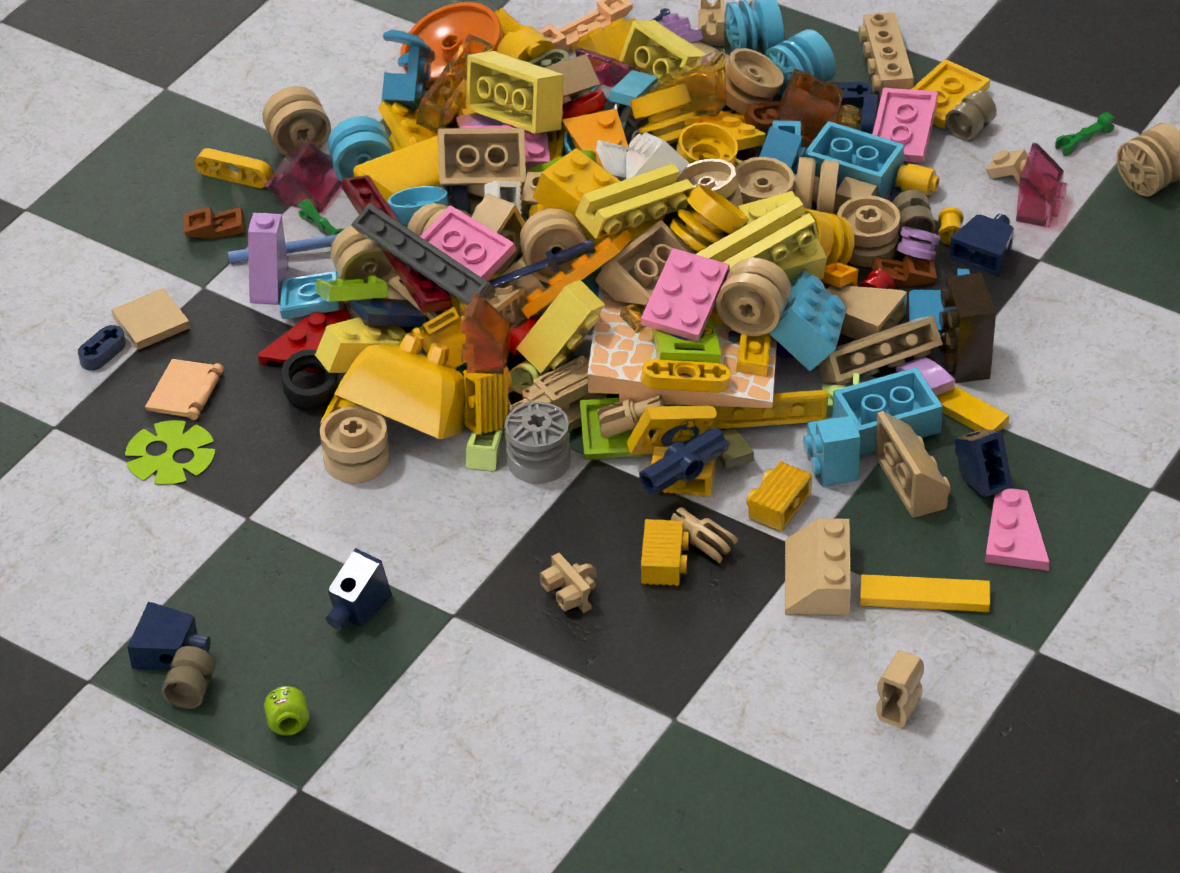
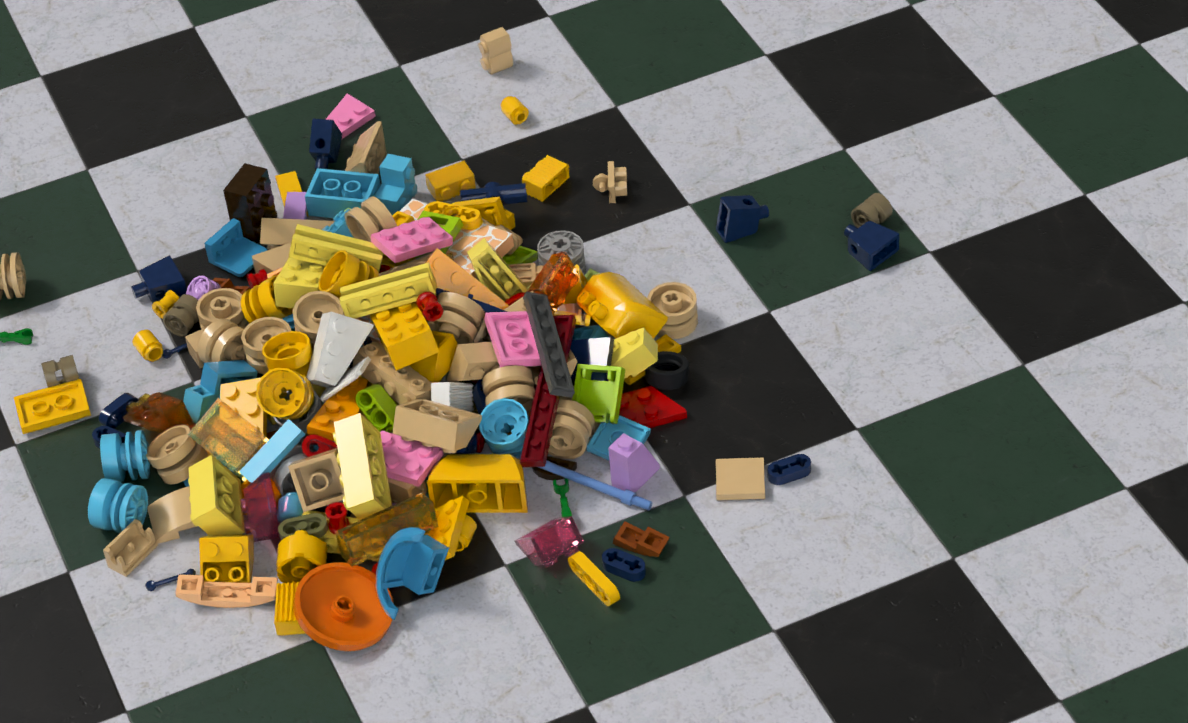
camera: 145 degrees left, 0 degrees up
(167, 469) = (781, 388): lime piece -> none
(184, 388) = (751, 415): light nougat piece -> none
(217, 196) = (623, 564): none -> dark blue beam
(286, 710) = (826, 175): lime head -> none
(295, 116) = (522, 577): tan wheel -> none
(355, 143) = (497, 524): medium azure wheel -> none
(566, 200) = (428, 304): none -> red bush
(681, 27) = (163, 553): lavender slope -> none
(706, 534) = (510, 173): tan arm -> none
(798, 632) = (514, 110): none -> yellow brick
(818, 569) = (469, 134): tan slope -> none
(859, 155) = (173, 363): medium azure brick -> none
(886, 52) = (52, 452): tan brick -> none
(907, 119) = (110, 381): bright pink plate -> none
(925, 593) = (426, 108): yellow tile -> none
(1007, 164) = (80, 330): tan bracket -> none
(1040, 189) = (91, 297): clear pink slope -> none

